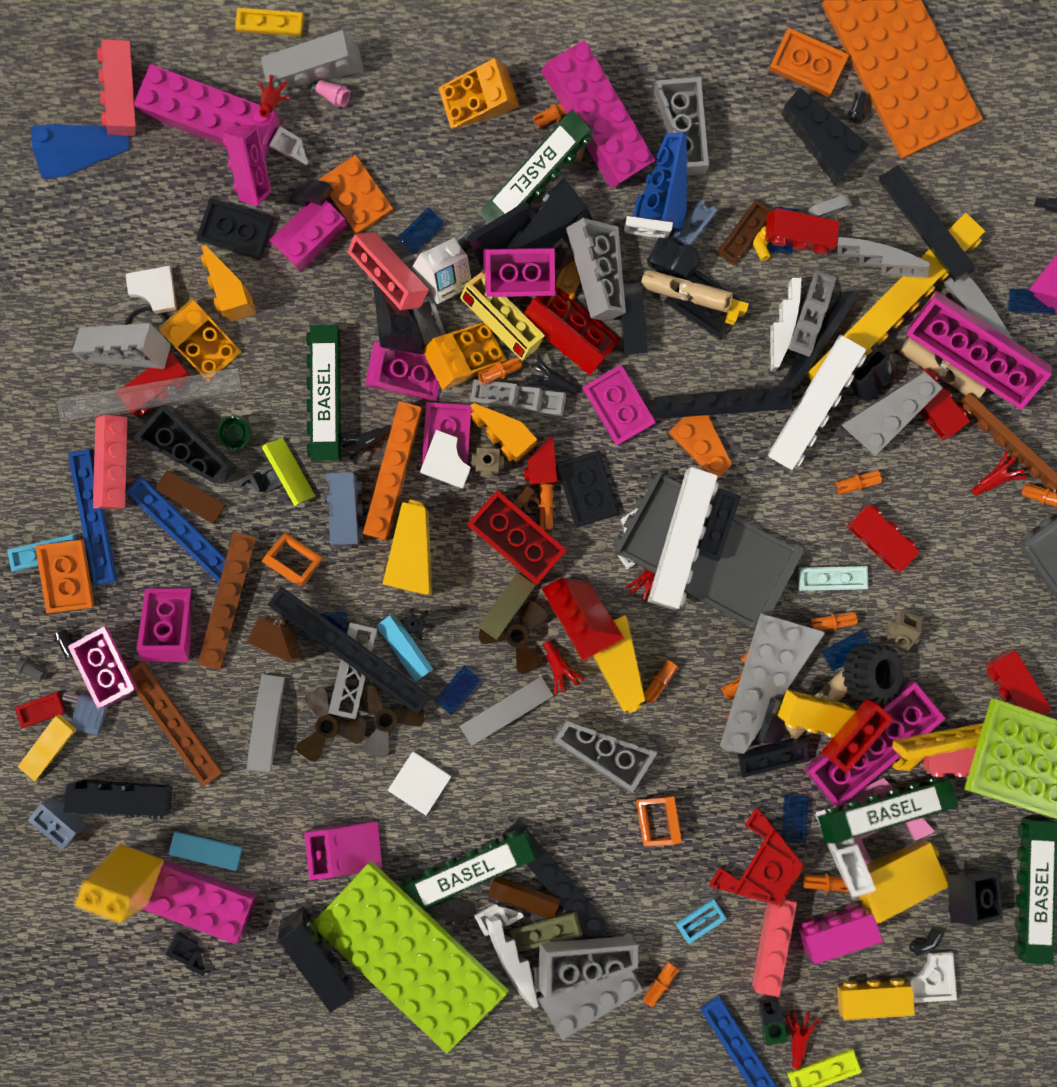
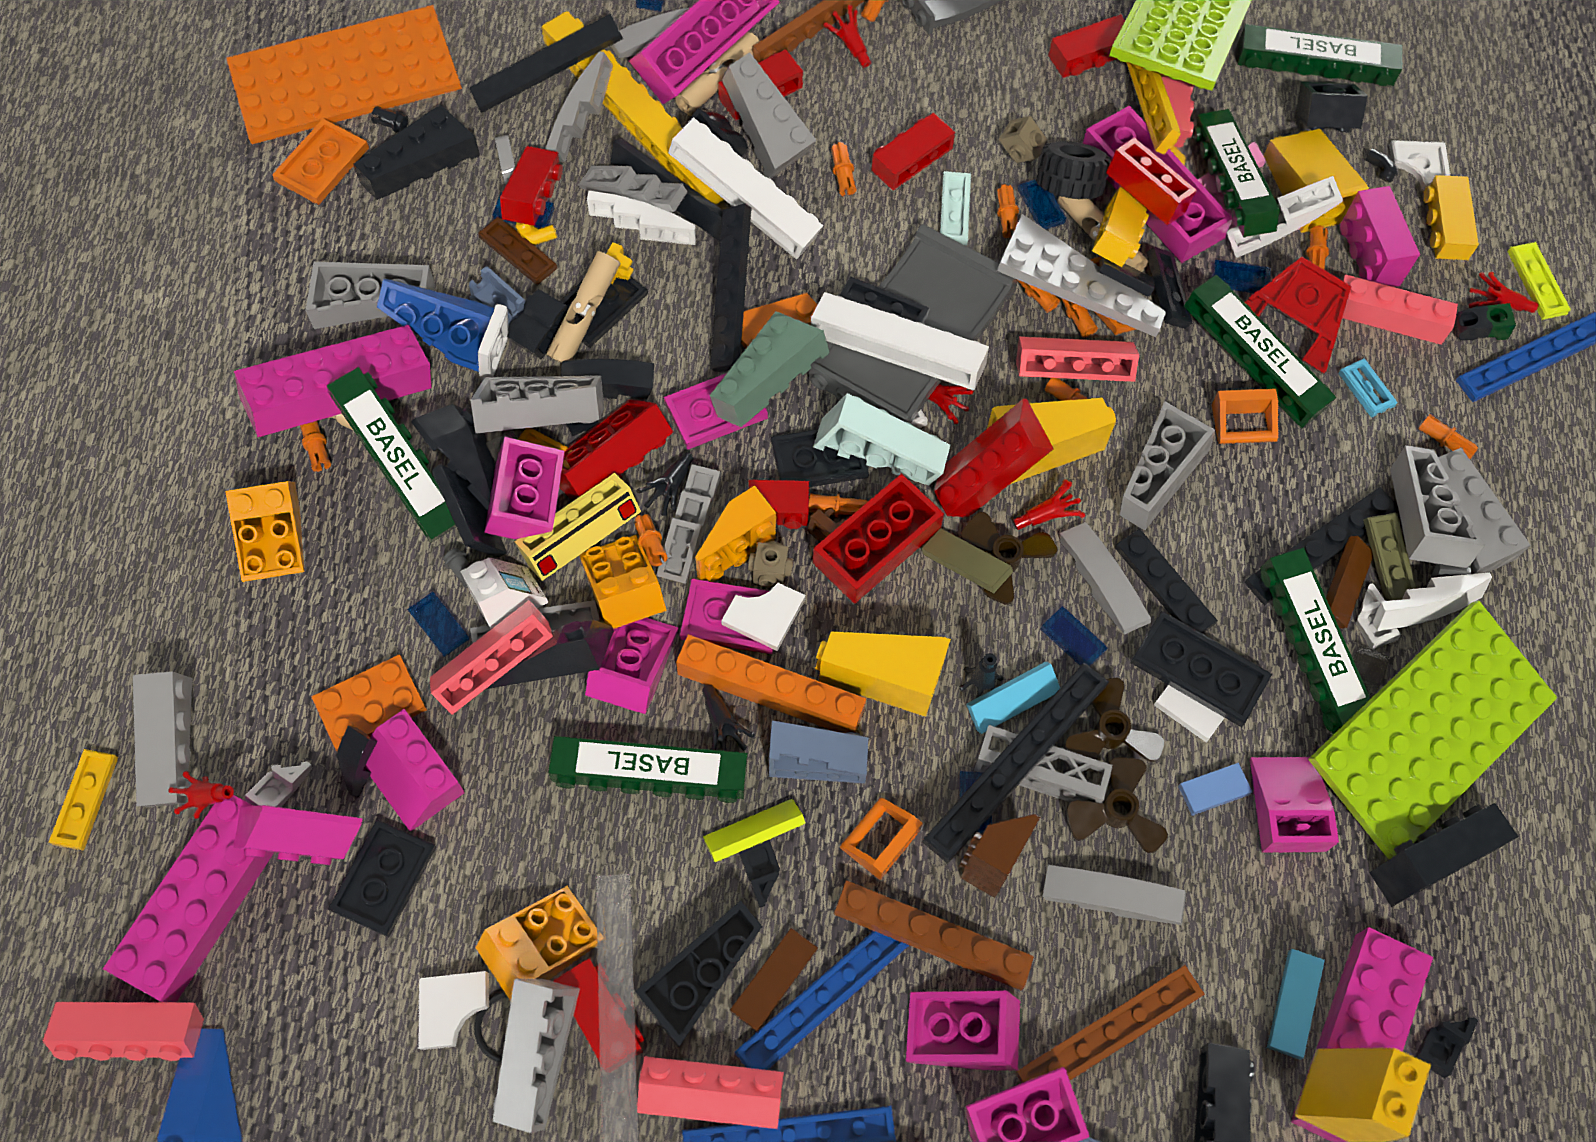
camera: 90 degrees left, 20 degrees down
(231, 295) = (472, 881): light orange slope -> none
(233, 428) = (679, 897): dark green hair -> none
(335, 93) = (214, 717): bright pink cone -> none
(352, 795) = (1215, 789): none -> medium blue tile
(439, 784) = (1201, 668): none -> black tile
(509, 758) = (1164, 582): none -> black plate
(597, 535) = (882, 440): none -> light aqua wedge
(648, 438) = (767, 366): none -> sand green wedge
(692, 683) = (1077, 359): none -> coral brick
(718, 831) = (1259, 350): none -> dark green brick

